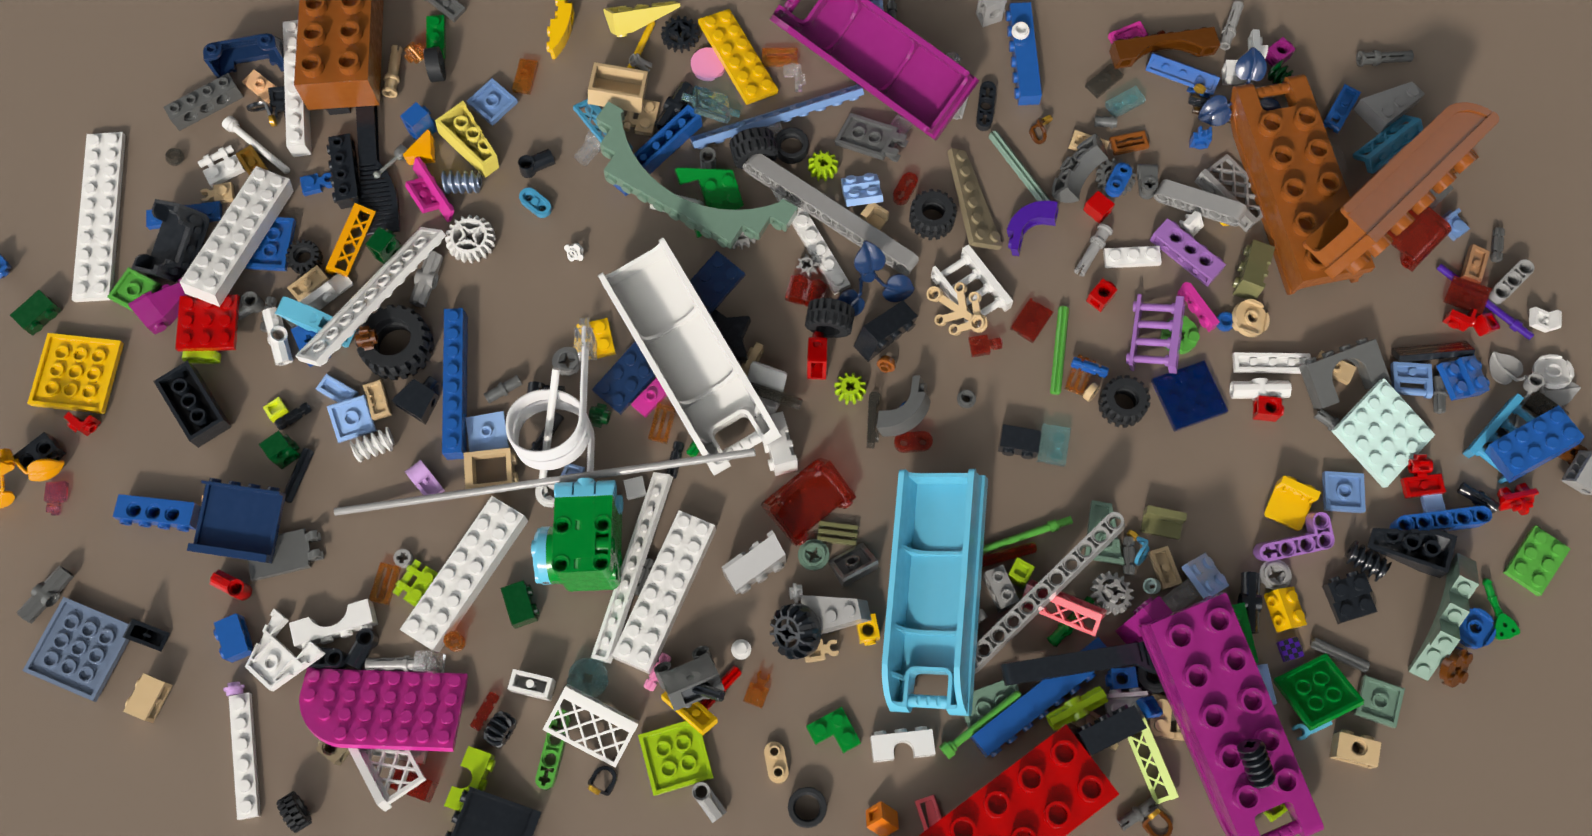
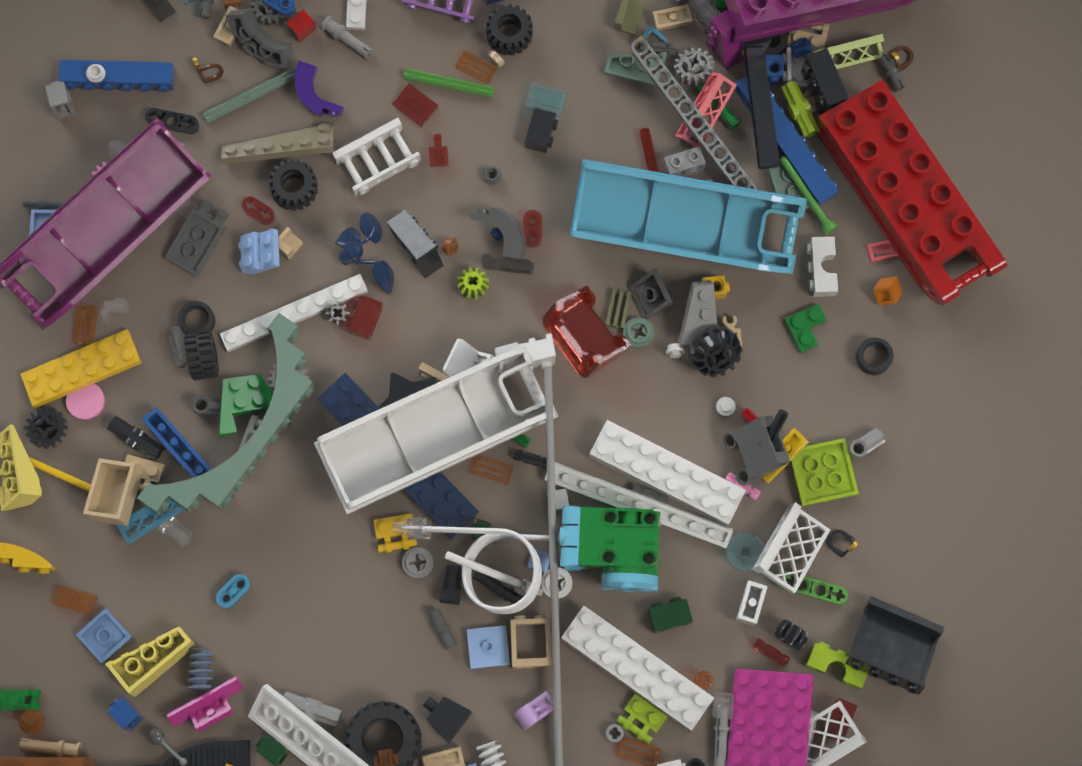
camera: 90 degrees left, 5 degrees up
(422, 148) = (156, 712): light orange slope -> none
(434, 64) = (53, 696): black tyre -> none
(455, 384) = (433, 677): blue brick -> none
(465, 248) = (276, 655): white gear -> none
(536, 162) = (185, 587): black piece -> none
(574, 252) = (295, 550): white plate -> none
(636, 61) = (76, 475): light grey pin -> none
(648, 399) = (464, 480): dark pink plate -> none
(711, 104) = (141, 397): clear light blue plate -> none
(755, 565) = (647, 384): wedge -> none
(757, 693) = (767, 395): clear orange plate -> none
(776, 762) = (832, 382): tan plate -> none
(777, 396) = (479, 348): clear smoke axle -> none
(783, 114) = (160, 334): medium blue plate -> none
(817, 356) = (437, 310): red torso -> none
(829, 162) = (226, 295): lime gear -> none
(829, 211) = (281, 285): light grey beam -> none
(830, 317) = (400, 293): black tyre -> none
(960, 310) = (402, 167): tan plant -> none
(1020, 572) = (669, 143): lime panel -> none
(1051, 526) = (625, 112): bright green bar -> none
(1089, 367) = (472, 56): blue axle -> none
(1099, 301) = (400, 41): red brick -> none
(1149, 582) = (692, 31): light aqua hinge -> none

